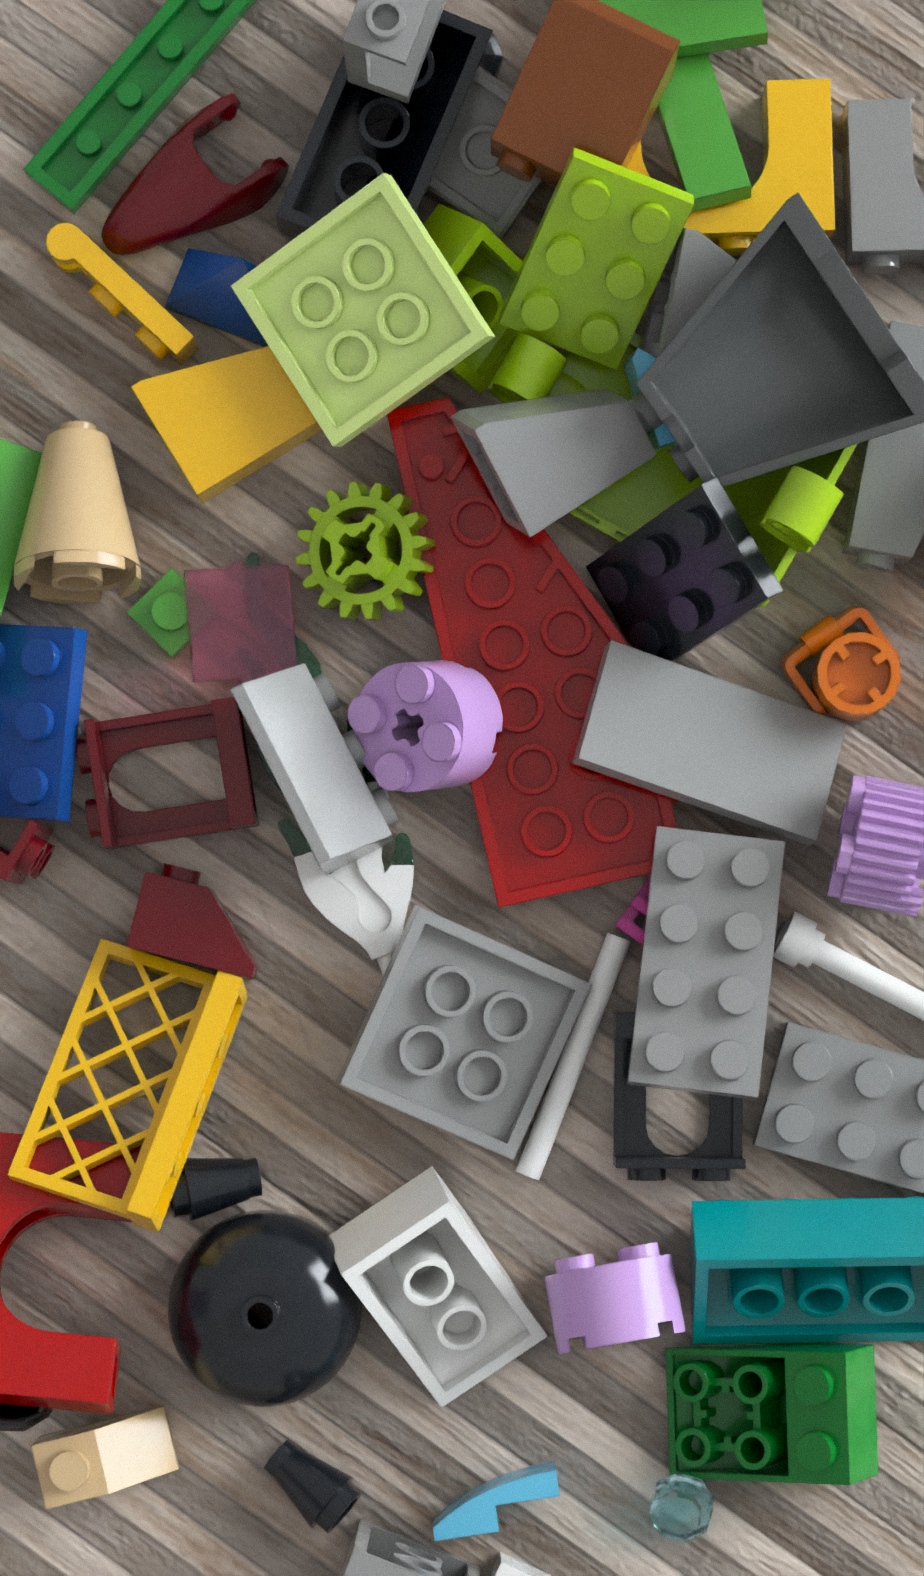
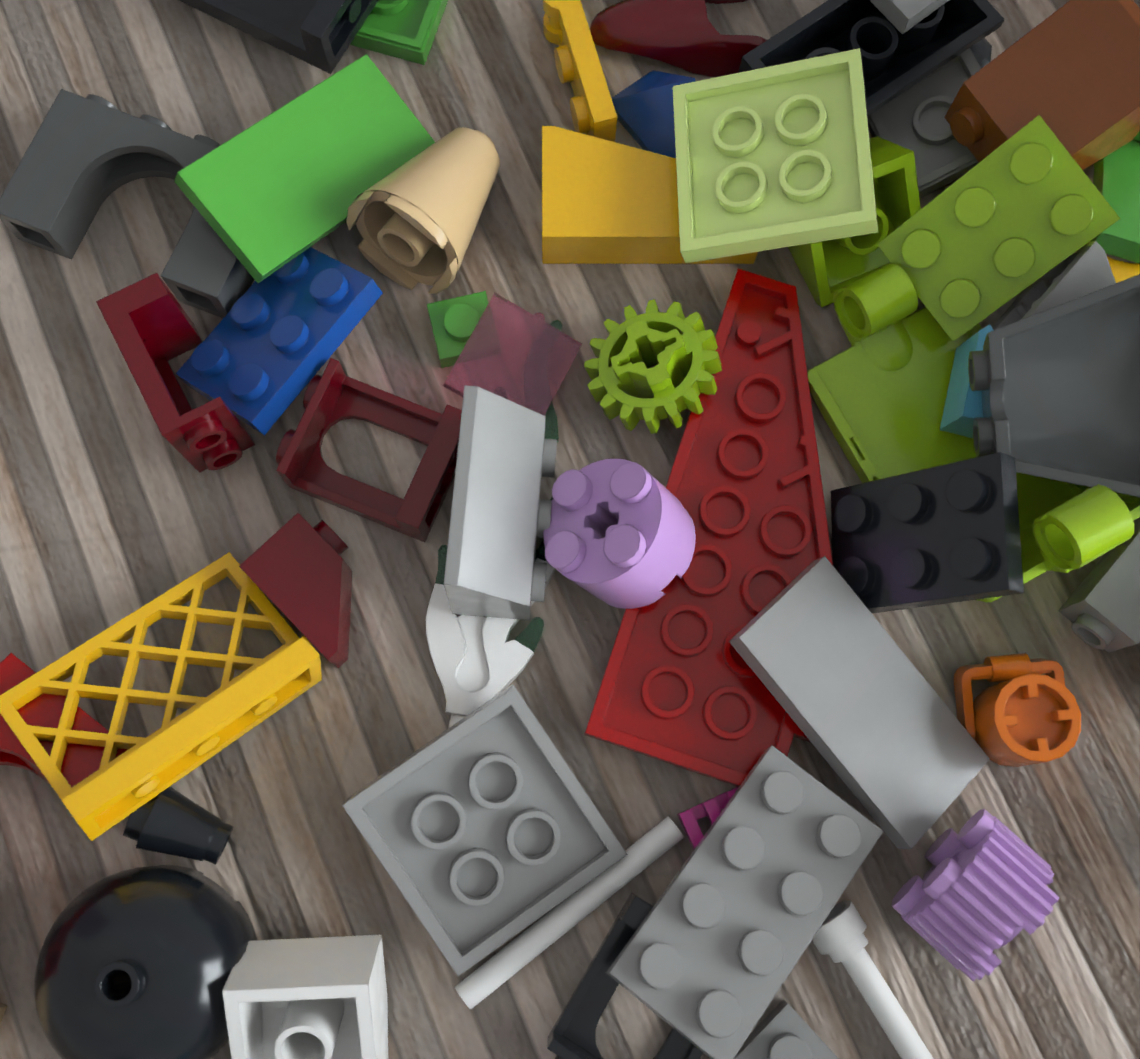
camera: 25 degrees right, 10 degrees down
(553, 451) = (864, 367): light grey slope -> none

